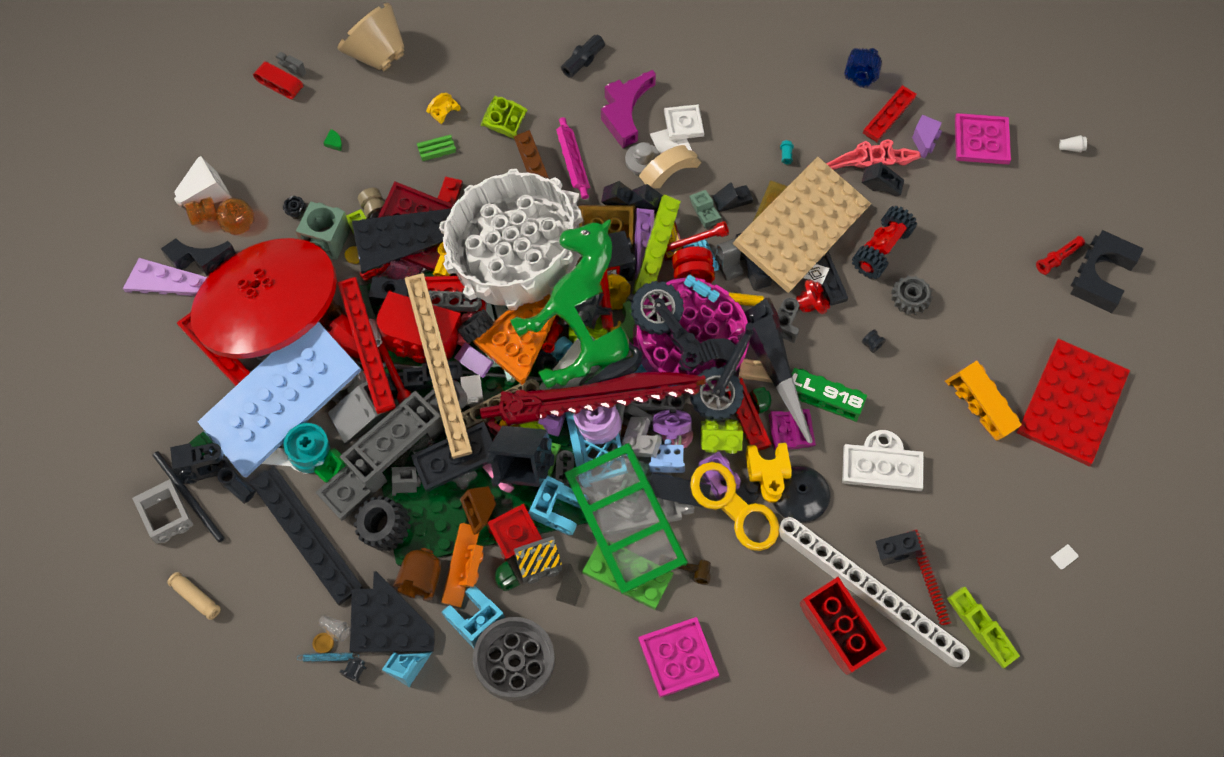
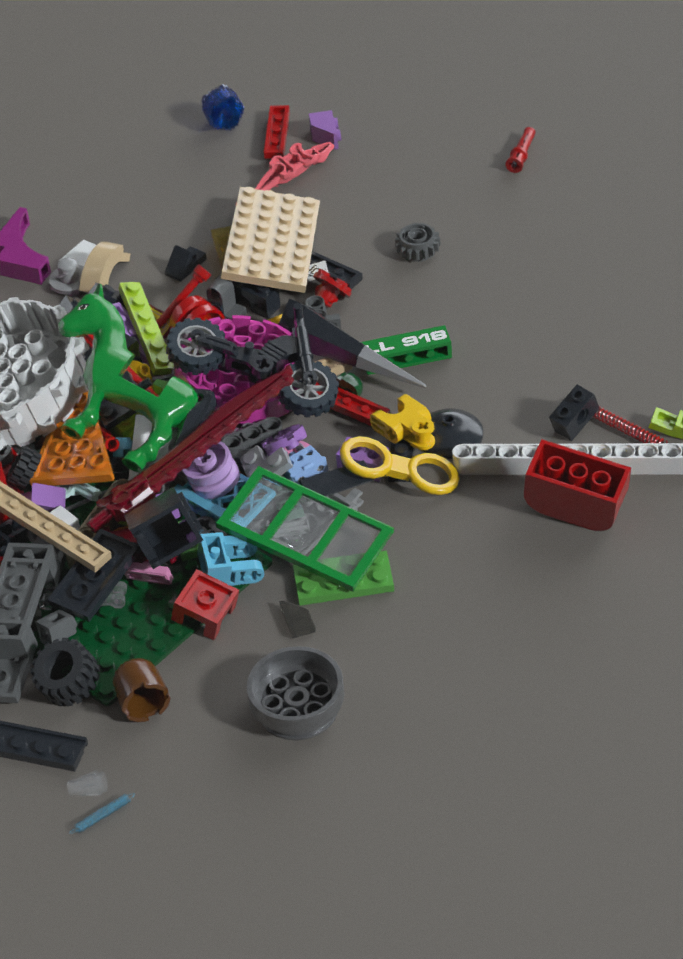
camera: 30 degrees left, 20 degrees down
(323, 643) = (86, 806): pearl gold piece -> none
(354, 669) = (140, 803): black brick -> none
(386, 622) = (138, 748): black wing -> none
(406, 666) = (190, 773): medium azure slope -> none
(463, 566) = (179, 657): orange bracket -> none
(472, 628) = (233, 696): medium azure brick -> none
(478, 506) = (152, 602): reddish brown slope -> none
(506, 577) = (228, 644): dark green piece -> none
(538, 560) = (248, 610): slope -> none
(678, 657) = (449, 606): dark pink plate -> none
(684, 122) = (85, 233): white plate -> none
(701, 288) = (226, 321): medium azure axle -> none
(701, 571) = (410, 534): dark brown brick -> none
(705, 209) = (164, 284): sand green slope -> none
(721, 436) = (339, 423): lime brick -> none
(785, 430) = (391, 389): magenta slope -> none
(787, 147) = (203, 202): teal pin -> none
(869, 257) = (358, 201): black plate -> none
(873, 341) = (413, 290): black wheel -> none
(881, 178) = (313, 176): black arch -> none
(883, 464) = (503, 369): white plate -> none
(982, 138) = (377, 107): dark pink plate -> none
(985, 400) = (549, 275): light orange wedge -> none
(1073, 402) = (627, 241): red plate -> none
(1074, 144) = (462, 71): white cone -> none
(1105, 249) = (566, 155): black arch -> none

